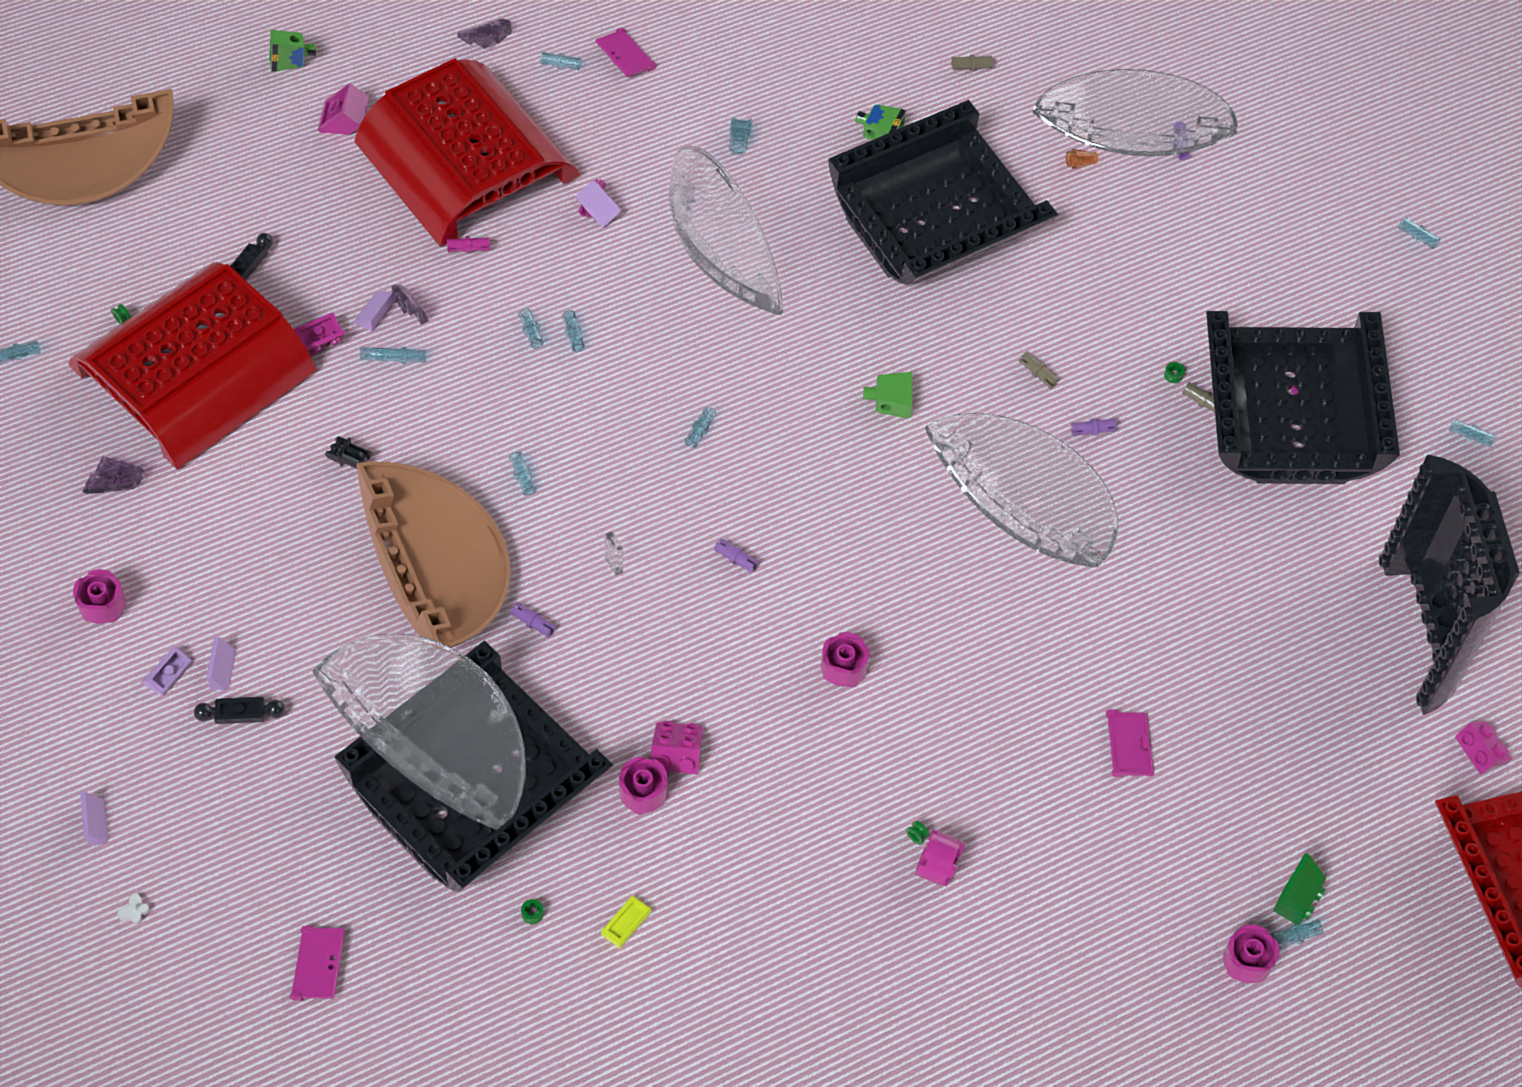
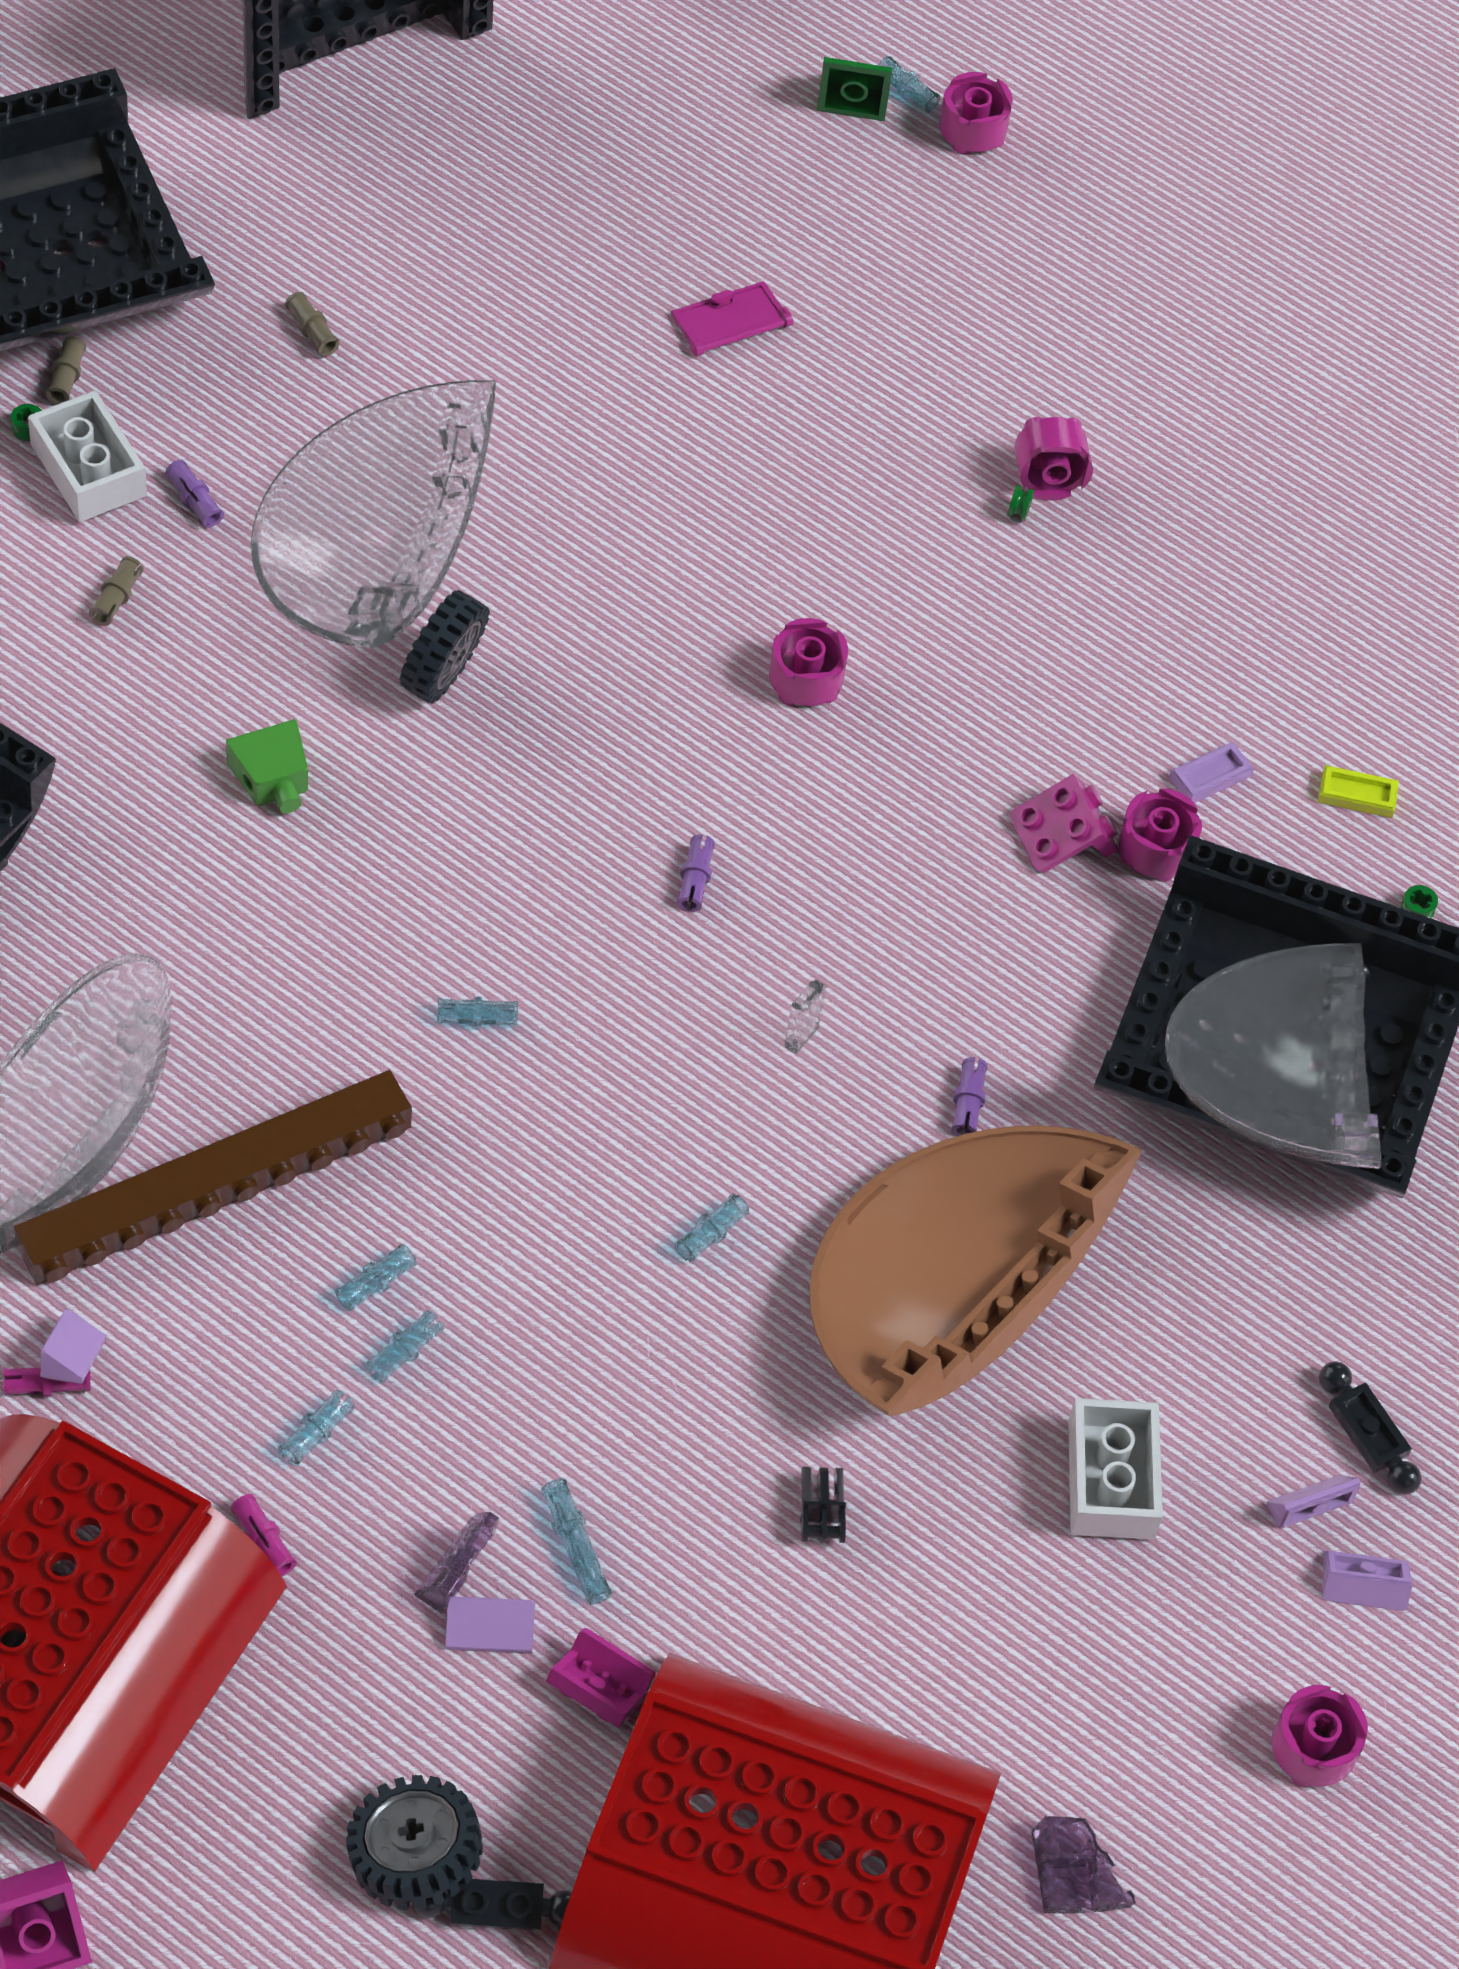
camera: 120 degrees left, 0 degrees up
(286, 576) = (1115, 1469): none -> white brick
(288, 237) = (414, 1842): none -> wheel
(509, 281) = (316, 1428): none -> clear light blue pin
(661, 291) = (212, 1177): none -> reddish brown brick
(678, 846) = (1211, 772): none -> lavender tile
(924, 479) = (444, 646): none -> black wheel
(1132, 380) = (87, 456): none -> white brick
(1198, 523) = (312, 323): none -> dark tan pin

